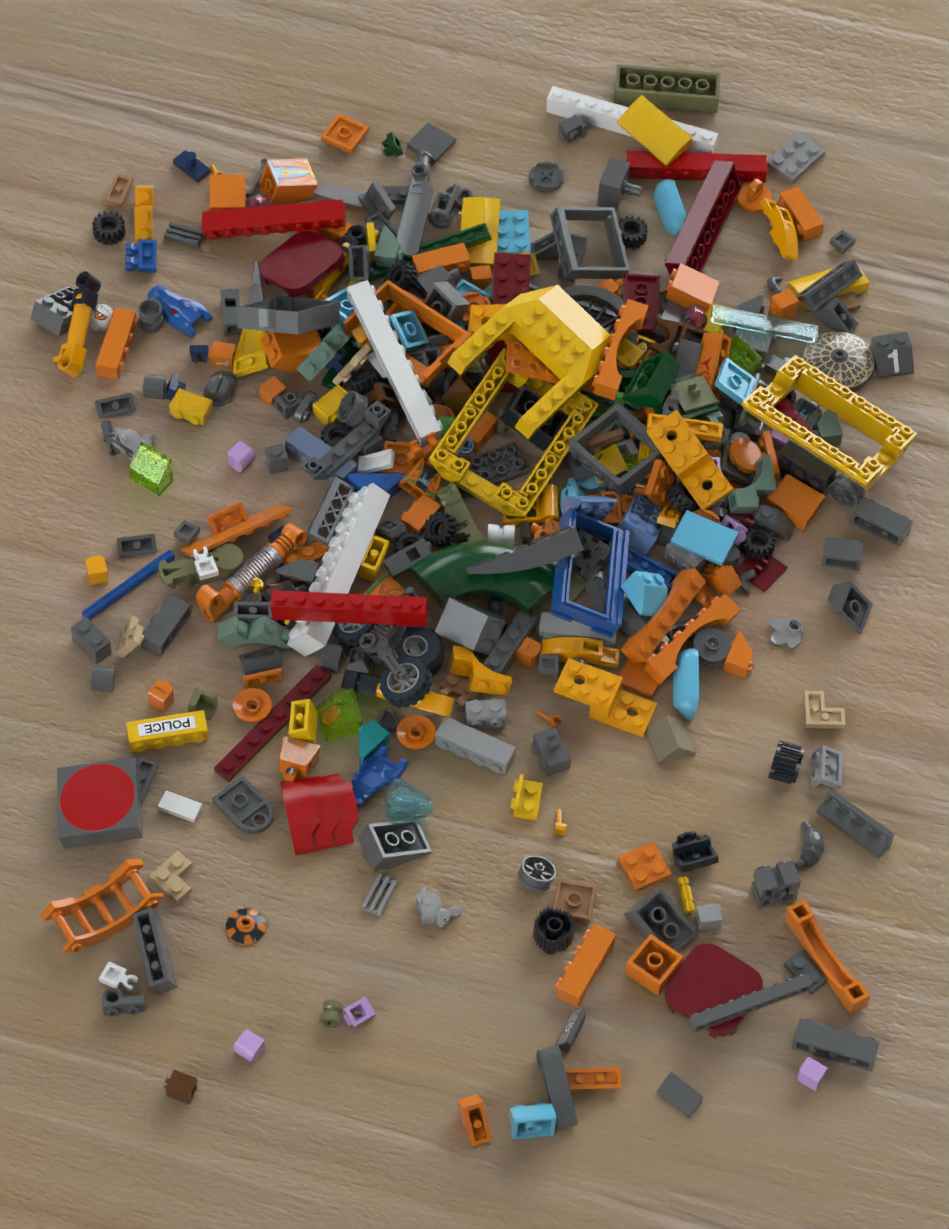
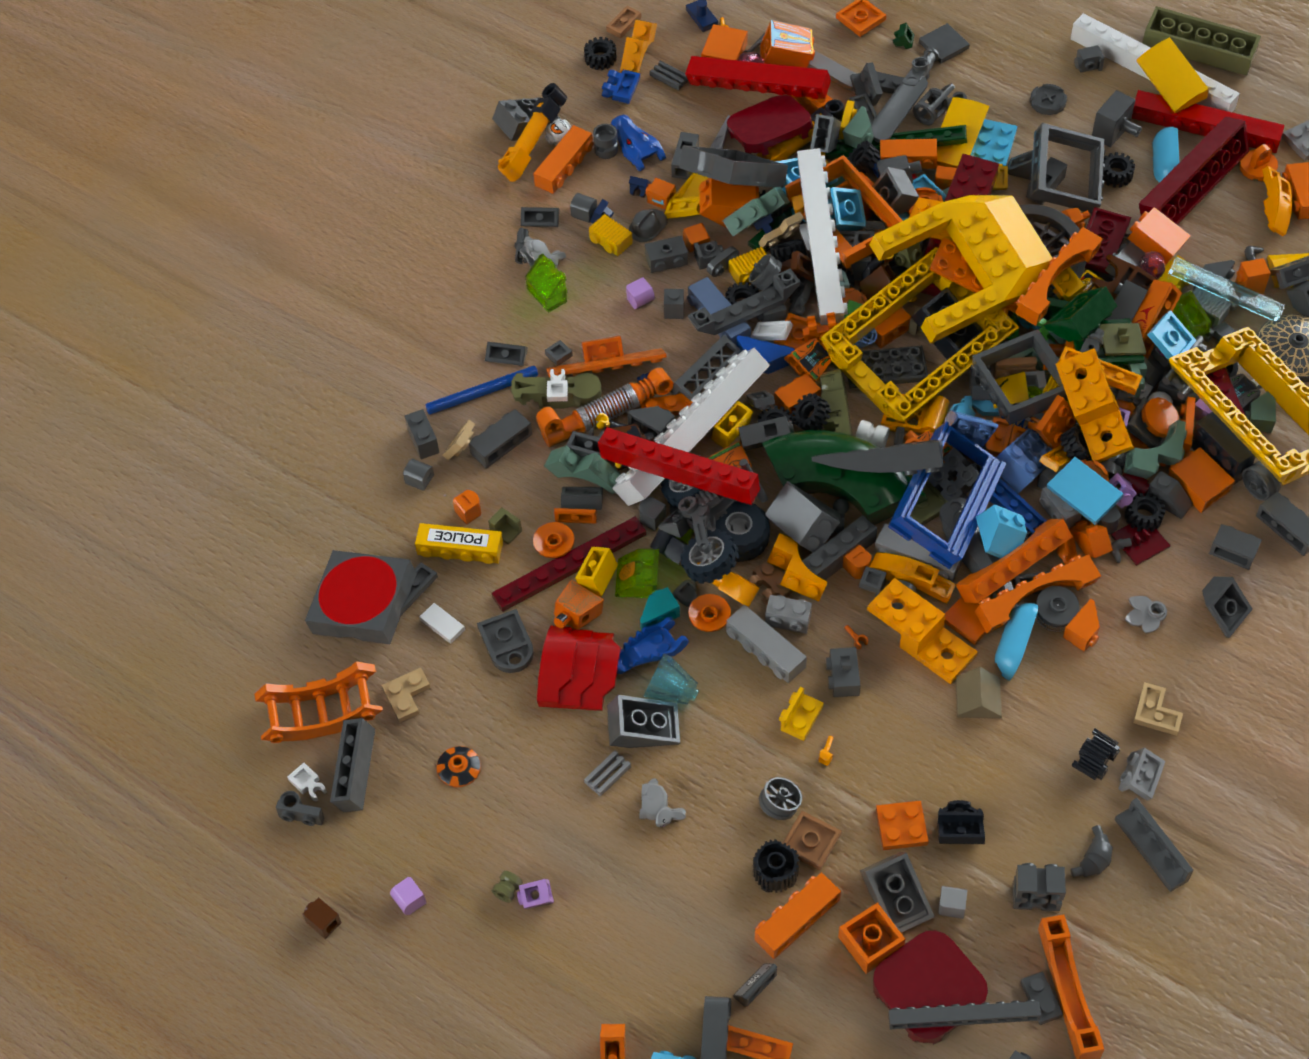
camera: 25 degrees right, 0 degrees up
(96, 570) = (455, 367): light orange piece -> none
(250, 413) = (666, 254): none -> dark grey brick
(686, 895) = (936, 870): yellow axle -> none

